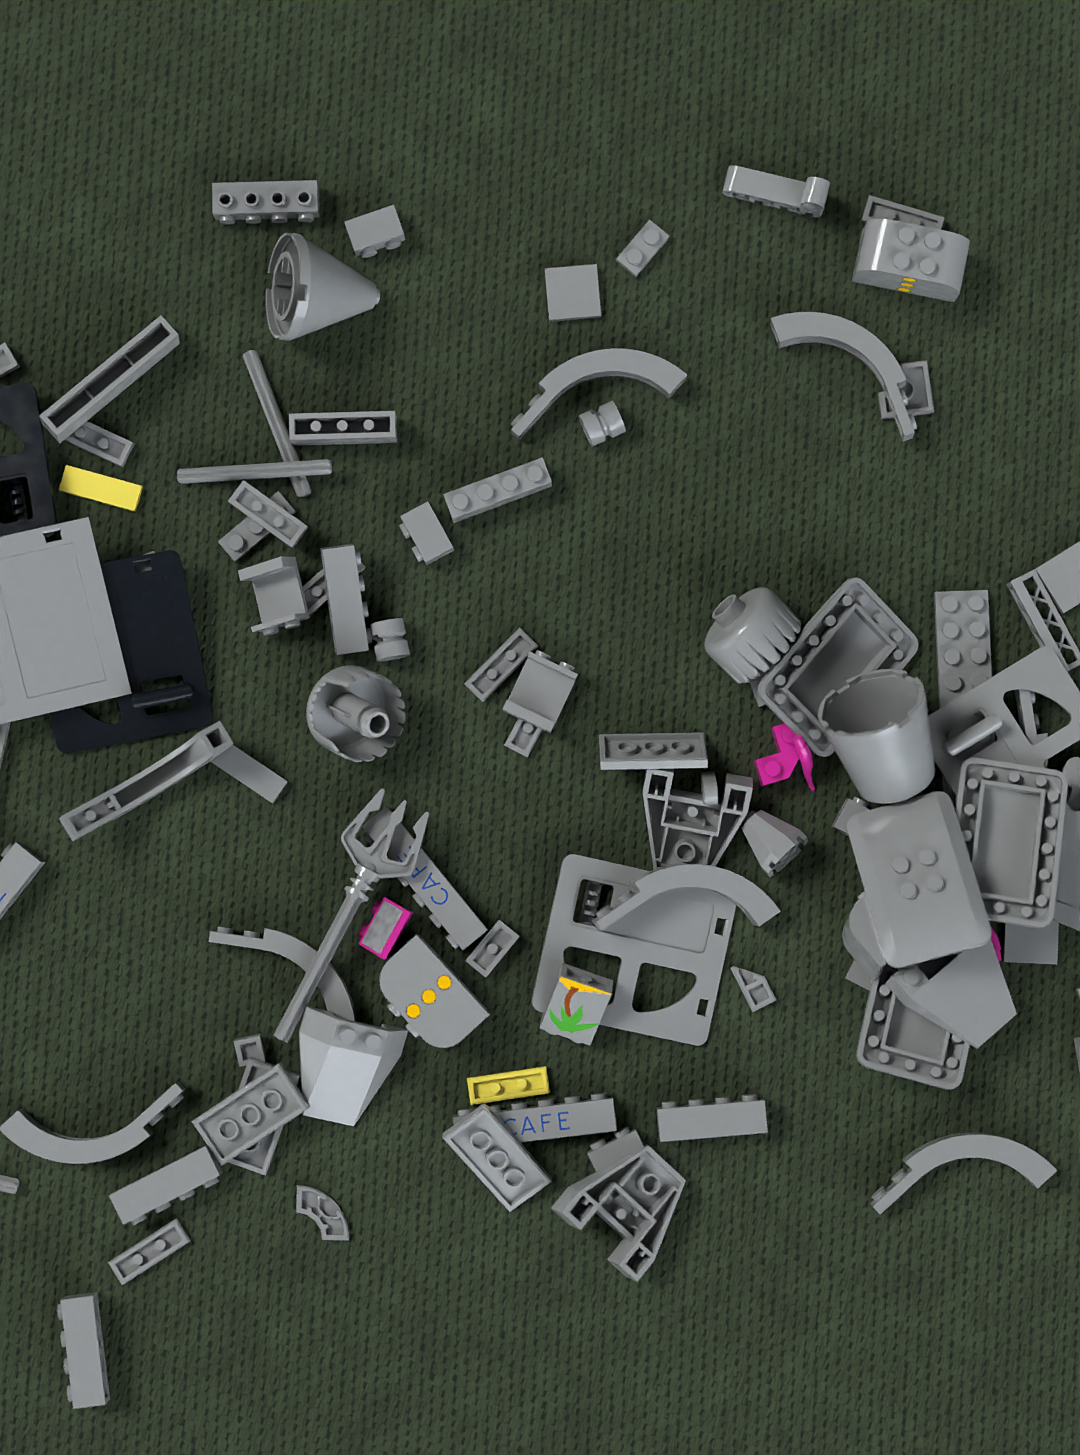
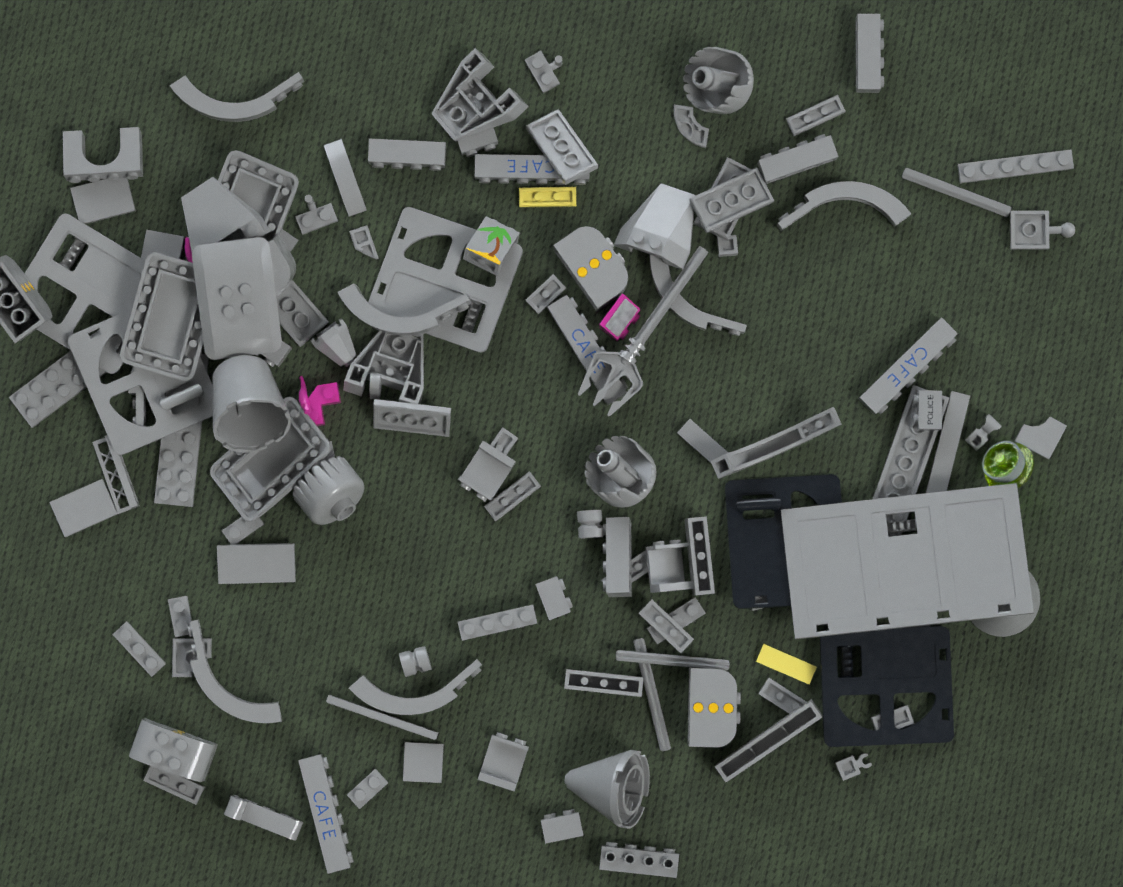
camera: 175 degrees left, 0 degrees up
(192, 412) = (712, 707): none -> light grey brick
(234, 615) = (699, 556): none -> light grey brick
(288, 1280) = (718, 80): none -> light grey piece
(465, 306) = (503, 761): none -> light grey panel
(538, 1263) = (543, 71): none -> light grey plate
(626, 341) = (382, 717): none -> light grey tile
(694, 206) = (325, 813): none -> light grey brick
(793, 1074) = (345, 177): none -> light grey slope
(824, 1014) = (316, 217): none -> light grey plate
(828, 874) = (299, 314): none -> light grey tile
(836, 526) = (256, 563): none -> light grey tile
(867, 568) = (241, 529): none -> light grey plate
(928, 444) = (180, 615): none -> light grey plate
(976, 392) = (139, 649): none -> light grey plate

